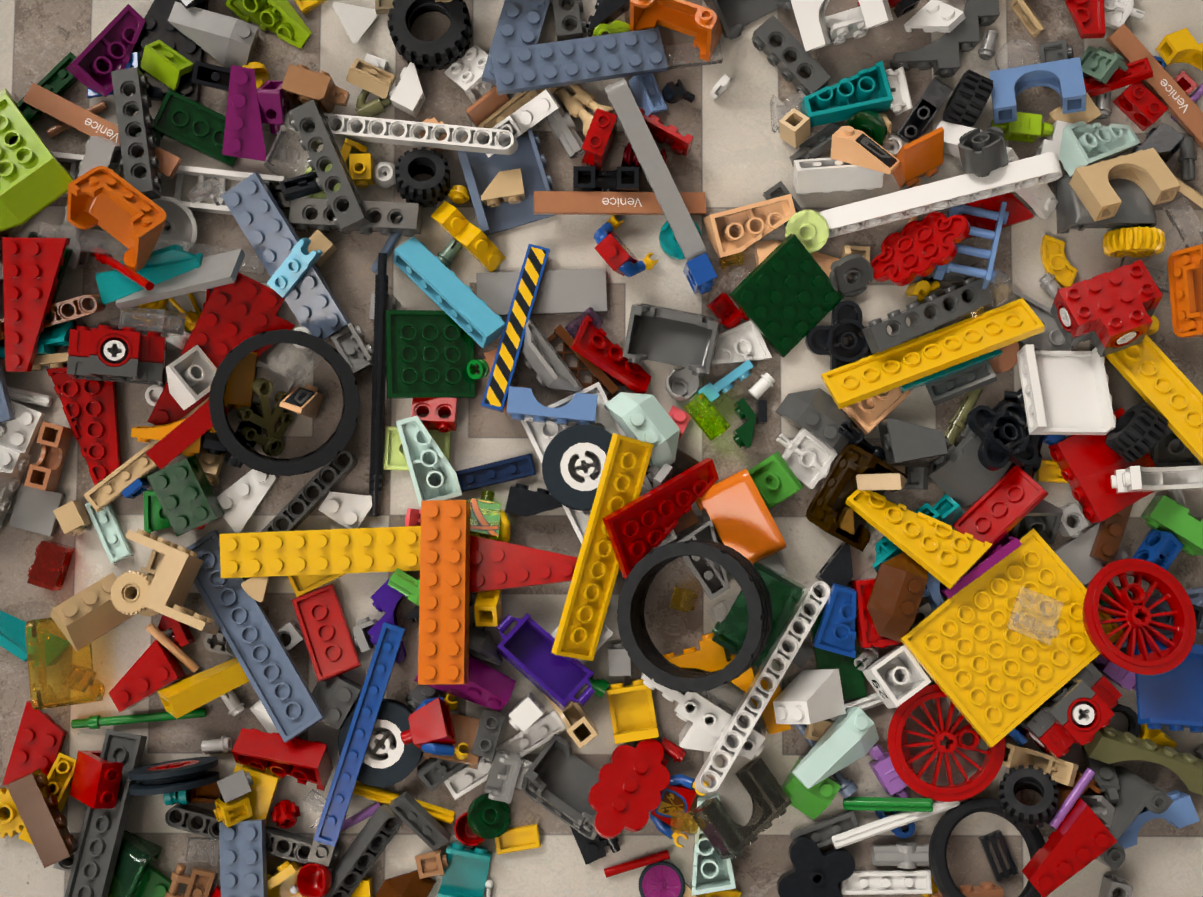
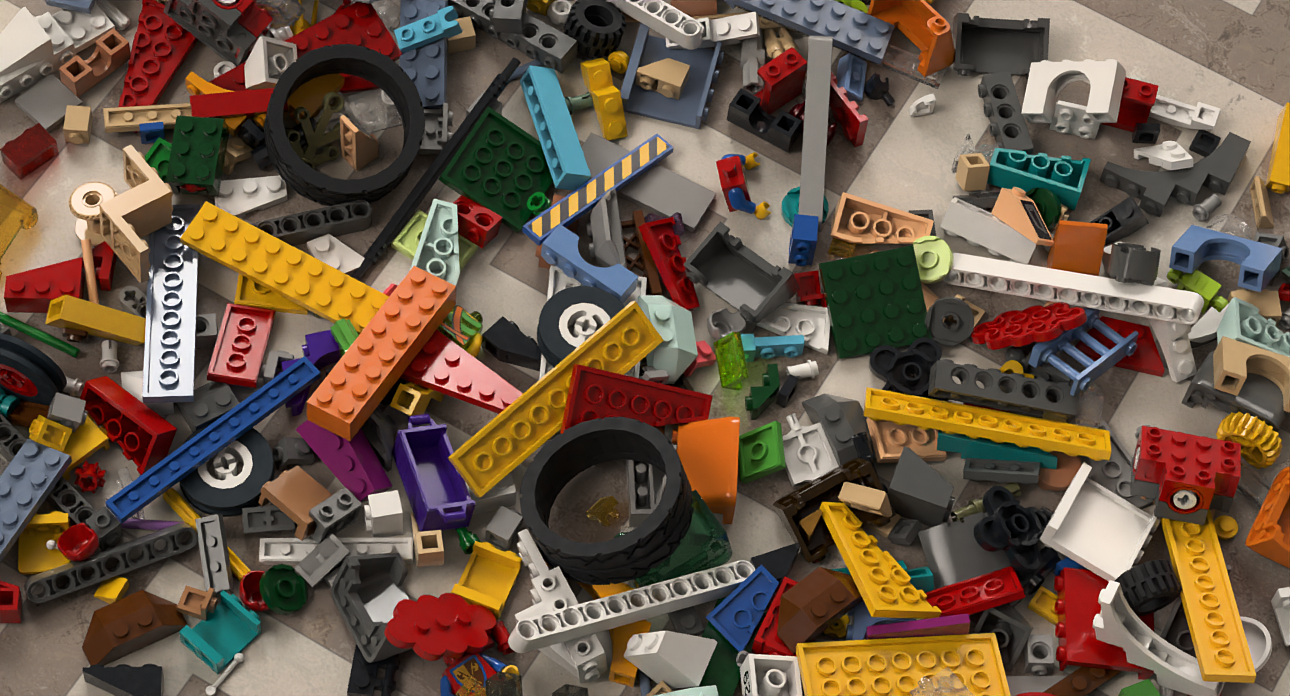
camera: 25 degrees right, 25 degrees down
(88, 614) = (40, 202): tan slope -> none
(110, 533) = (101, 155): light aqua tile -> none
(256, 588) = (207, 269): tan tile -> none
(433, 728) = (289, 470): red torso -> none
(496, 472) = (497, 305): dark blue tile -> none
(518, 839) = (295, 633): yellow tile -> none
(609, 203) = (756, 139): nougat tile -> none
(899, 90) = (1091, 202): white hinge -> none
(968, 99) = (1155, 228): black tyre -> none
(1055, 261) = (1166, 414): yellow tile -> none

